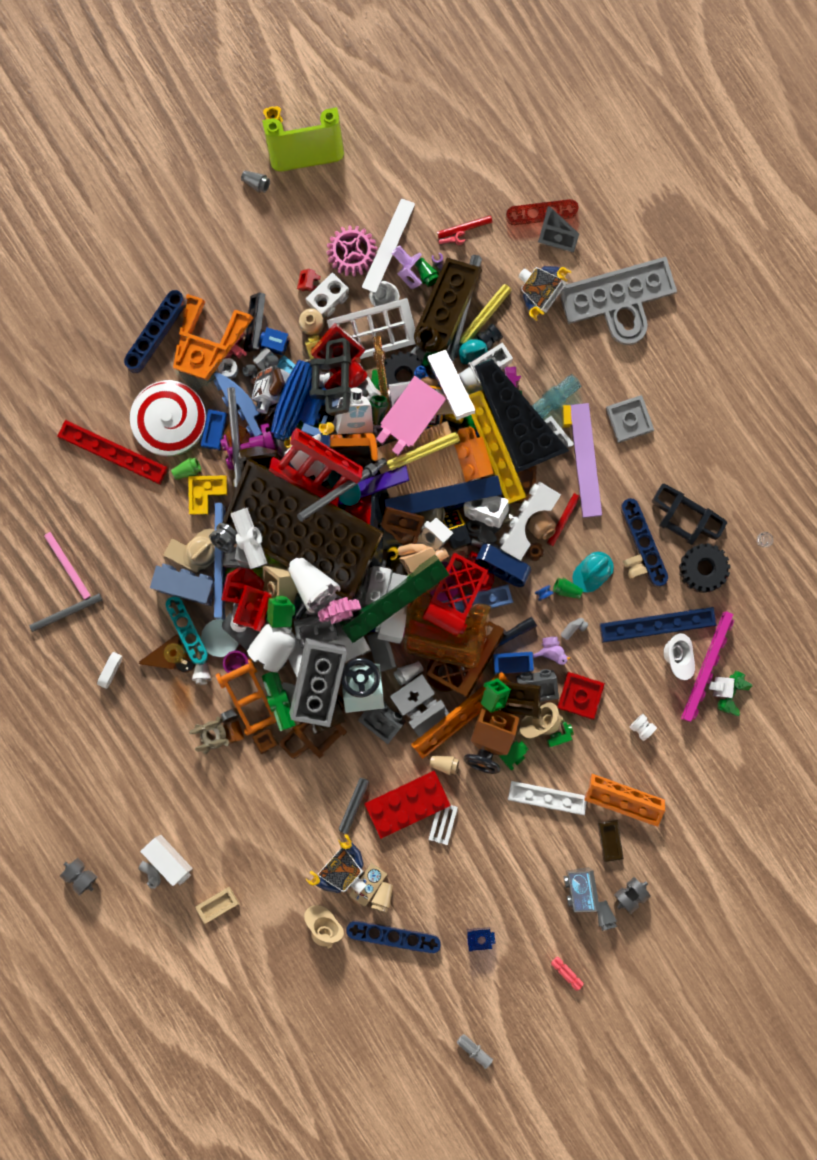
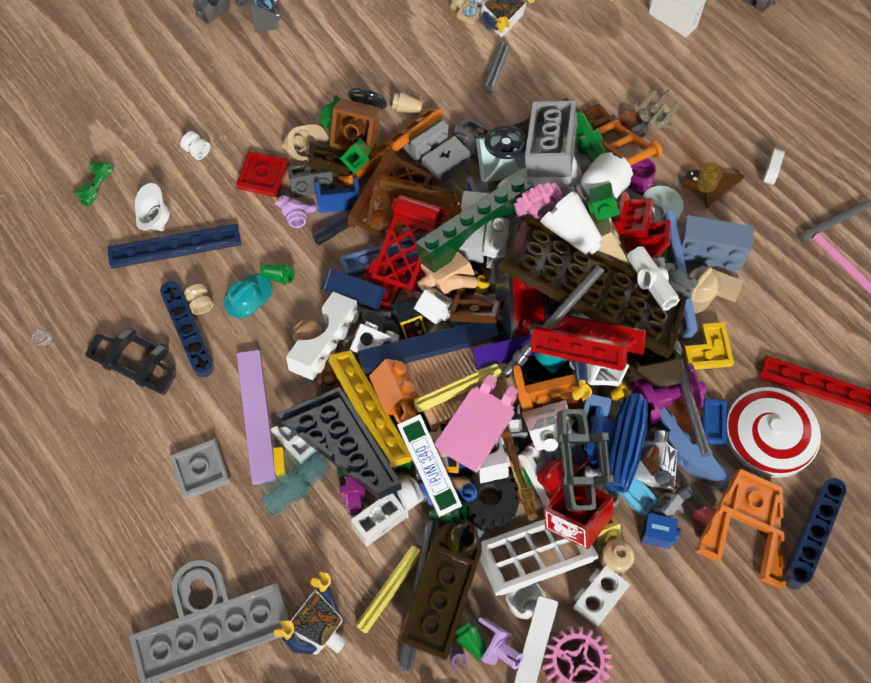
camera: 175 degrees right, 20 degrees down
(187, 630) = (695, 207): teal beam -> none
(189, 467) = (735, 373): bright green cone -> none
(201, 672) = (675, 170): white cone -> none
(229, 372) = (708, 497): white wheel -> none
(253, 331) = (690, 560): black tile -> none
(306, 280) = (631, 616): red tile -> none
(379, 407) = (518, 435): dark green cone -> none
(407, 804) = (441, 70): red plate -> none
(408, 673) = (454, 180): white cone -> none
(438, 839) = (406, 46): white tile -> none
(472, 350) = (404, 535): teal hair -> none
(490, 336) = (382, 557): black wheel -> none
(534, 556) = (310, 310): reddish brown plate -> none
(544, 593) = (304, 266): blue bush -> none
(547, 798) = (297, 83): white tile -> none
(558, 738) = (281, 130): green bracket -> none
(563, 519) = (281, 350): red bar -> none
(572, 627) = (270, 236): light grey arm -> none
(610, 840) = (232, 52): dark brown tile -> none
(625, 800) = (219, 76): orange fence -> none
(694, 578) = (118, 316): black tyre -> none
(705, 675) = (121, 204): dark pink plate -> none
(722, 687) = (104, 185): white tile -> none

